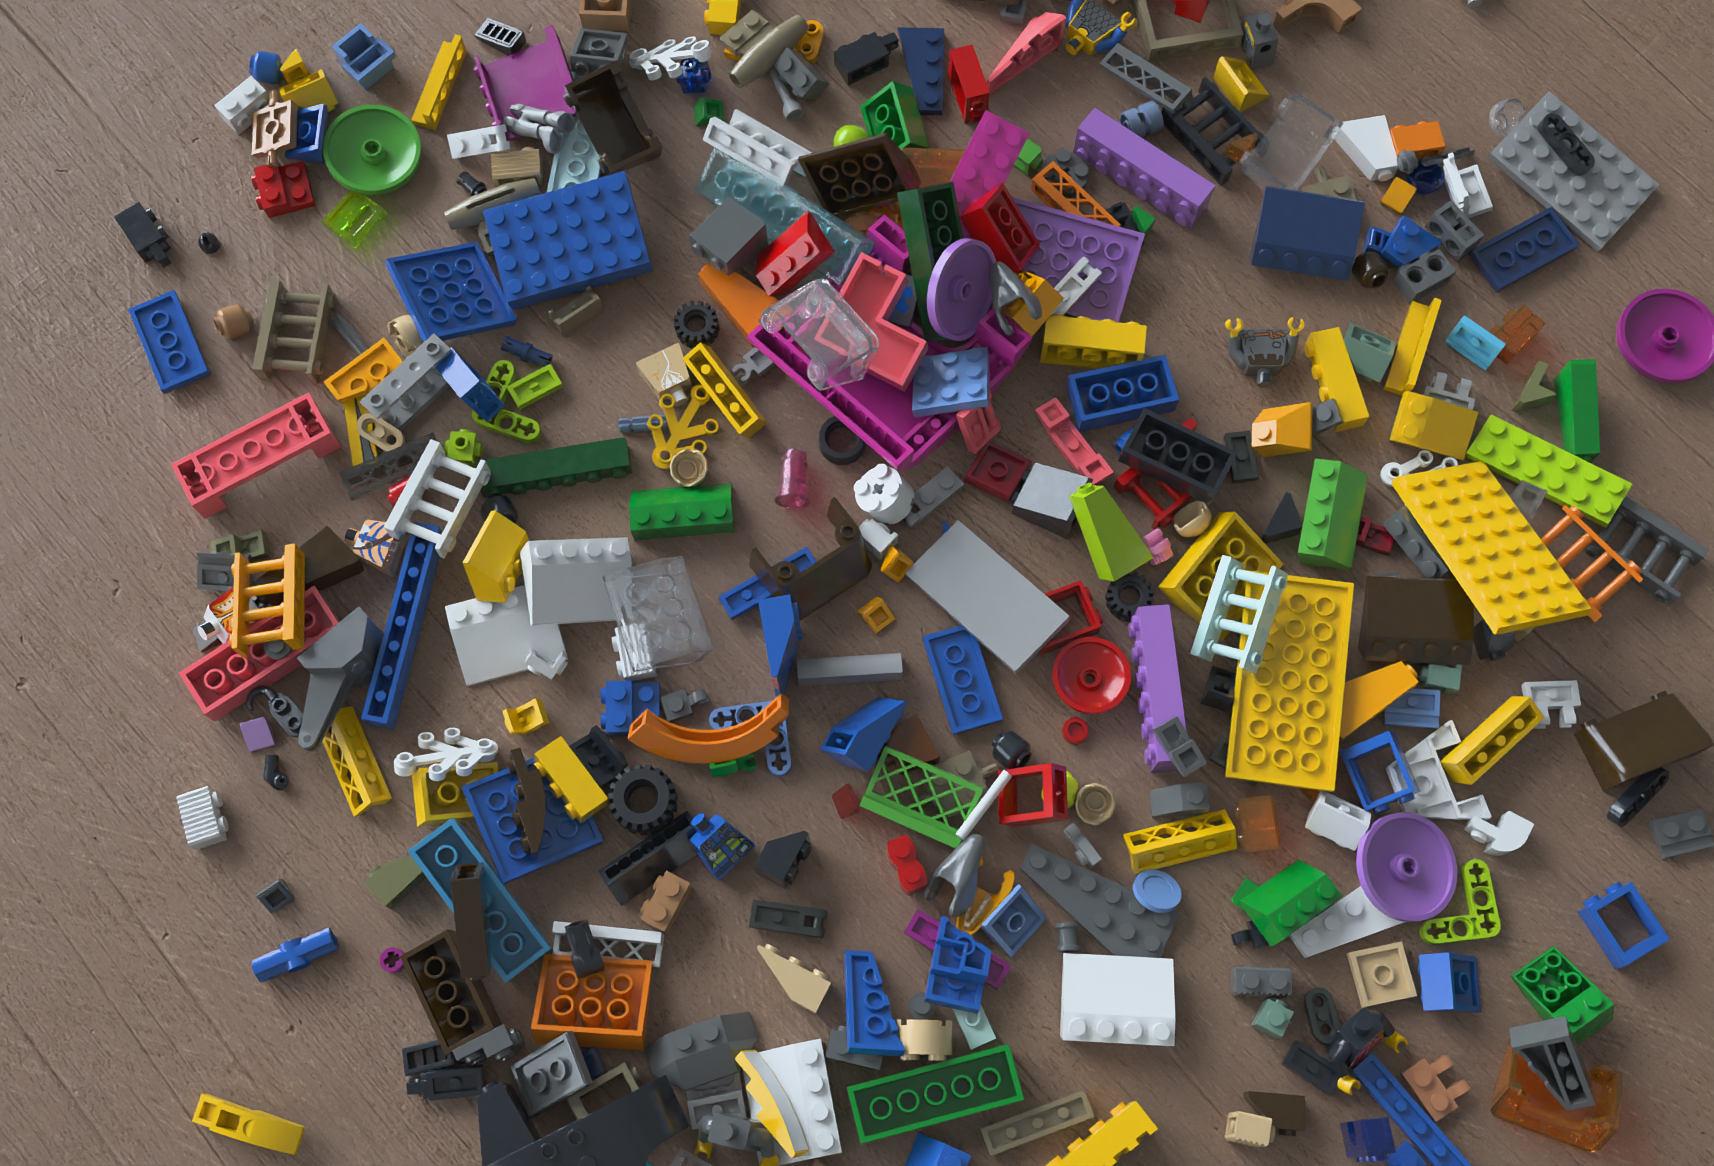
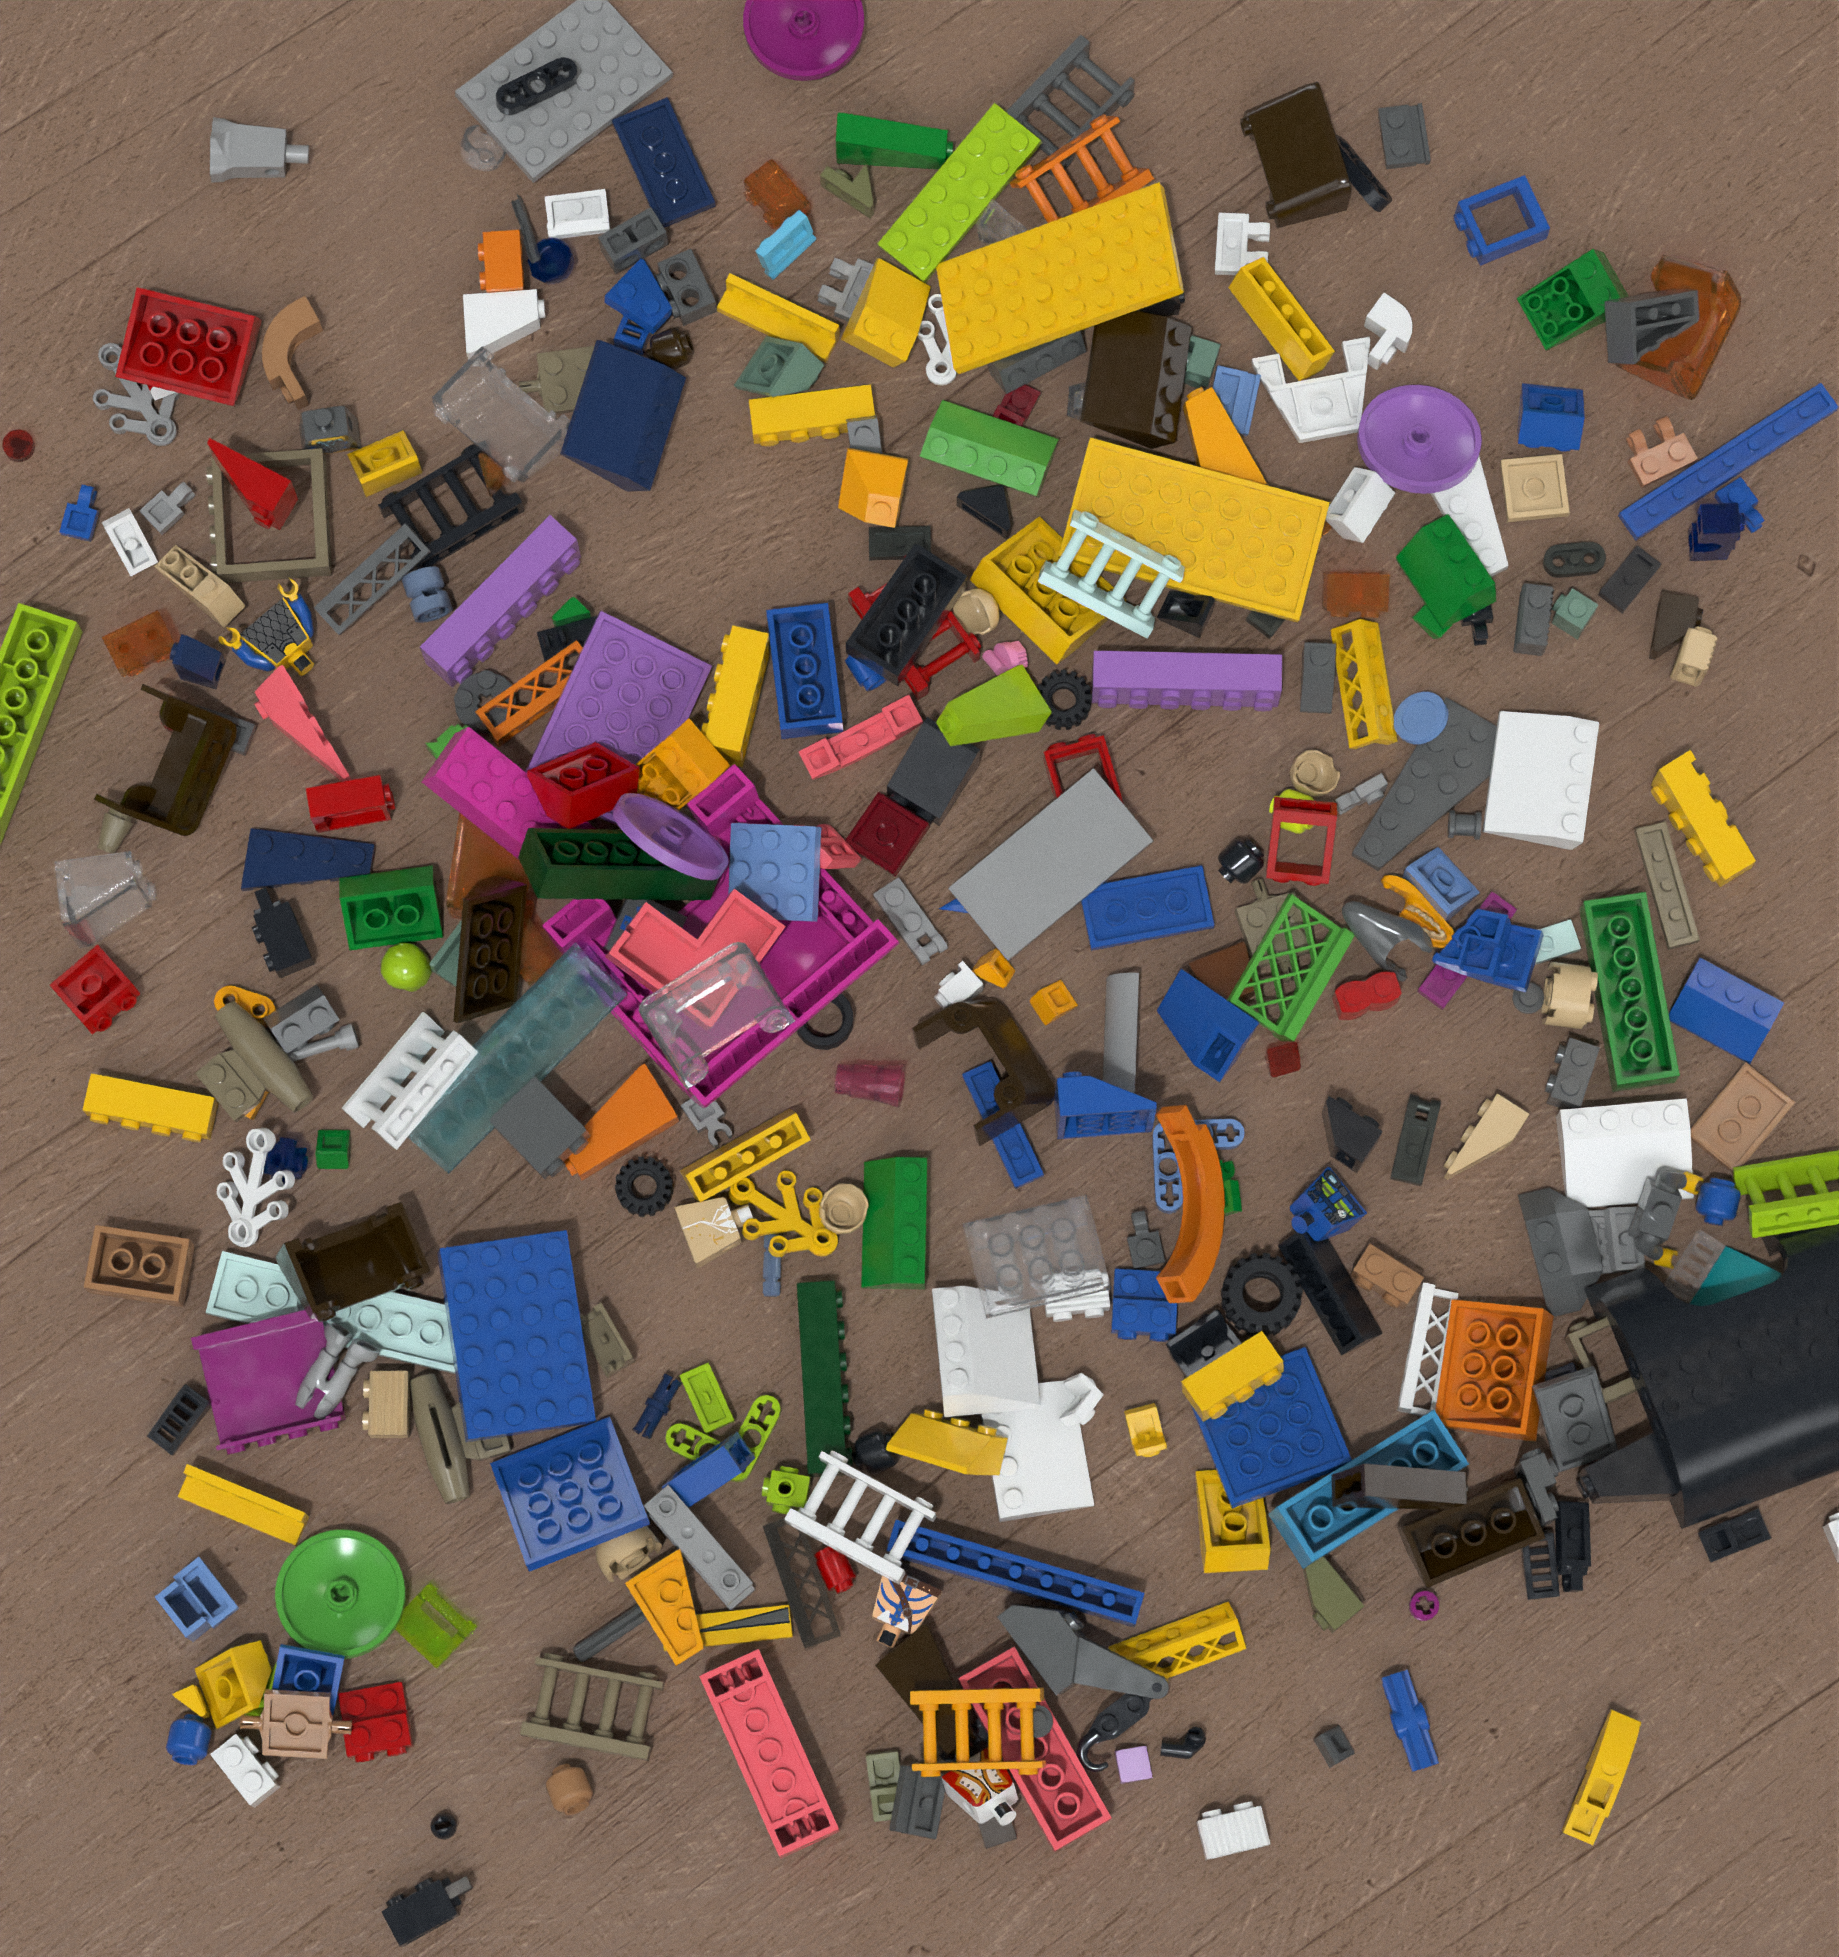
camera: 85 degrees left, 5 degrees up
(169, 341) = (586, 1877): blue plate -> none
(381, 434) = (754, 1596): tan plate -> none
(471, 184) = (405, 1467): black pin -> none
(477, 751) = (1179, 1487): white plant -> none
(478, 141) = (349, 1449): white plate -> none
(530, 811) = (1273, 1420): dark brown slope -> none
(585, 956) = (1443, 1370): black piece -> none
(596, 49) = (237, 1280): dark grey plate -> none
(776, 1109) = (1639, 1164): slope -> none
(792, 256) = (577, 1049): red slope -> none
(867, 1008) = (1539, 1053): blue wing -> none
(884, 494) = (906, 988): white brick -> none
(983, 805) = (1309, 896): white bar -> none
(1007, 288) = (677, 780): dark grey animal -> none
(1073, 287) = (659, 710): white plate -> none
(1075, 731) = (1221, 785): red tile -> none
(1096, 659) = (1167, 736): red dish -> none
(1178, 746) = (1268, 664): dark grey slope -> none
(1262, 350) = (765, 494): dark grey torso -> none
(1356, 1040) = (1608, 527): black torso -> none
(1371, 746) = (1345, 453): blue window -> none
(1398, 195) = (570, 298): light orange slope -> none
(1407, 161) = (536, 279): dark grey plate -> none
(1471, 921) = (1481, 378): lime beam -> none

